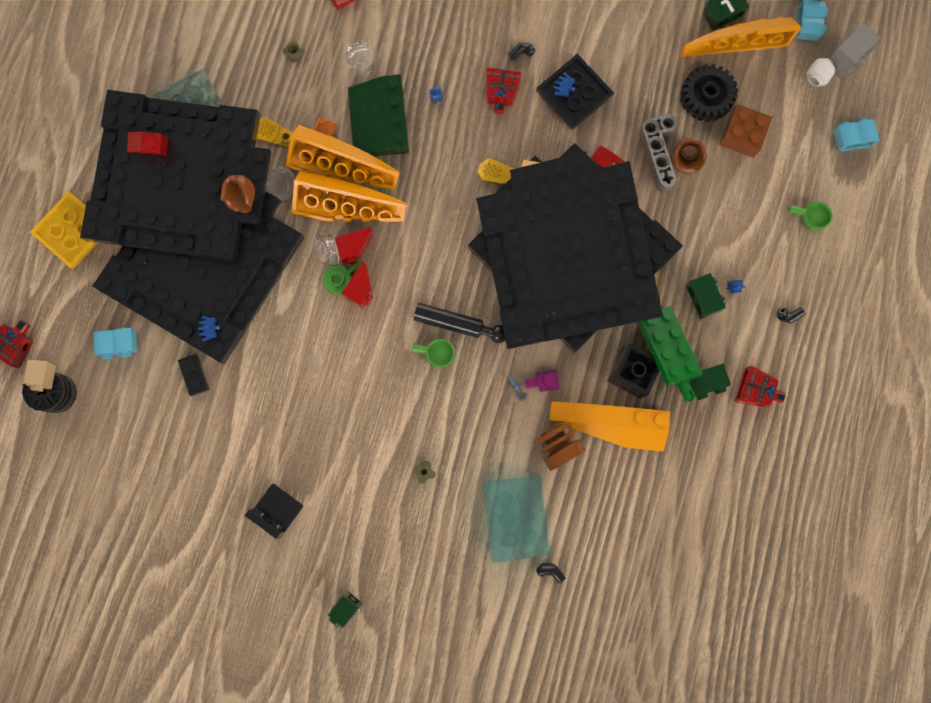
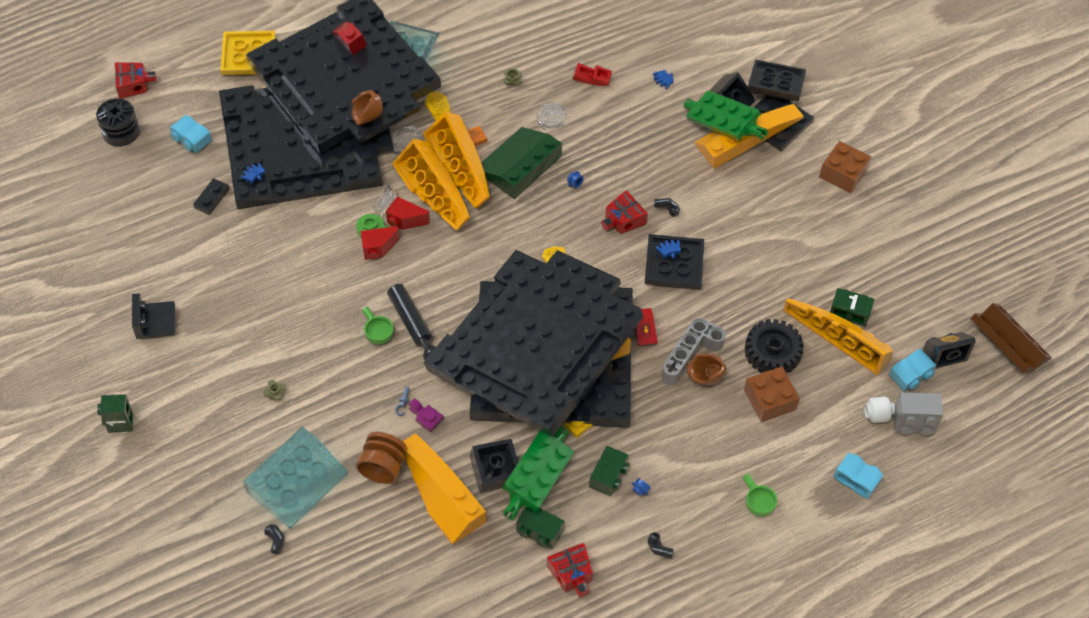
camera: 45 degrees right, 25 degrees down
(39, 375) = (124, 99): tan brick -> none

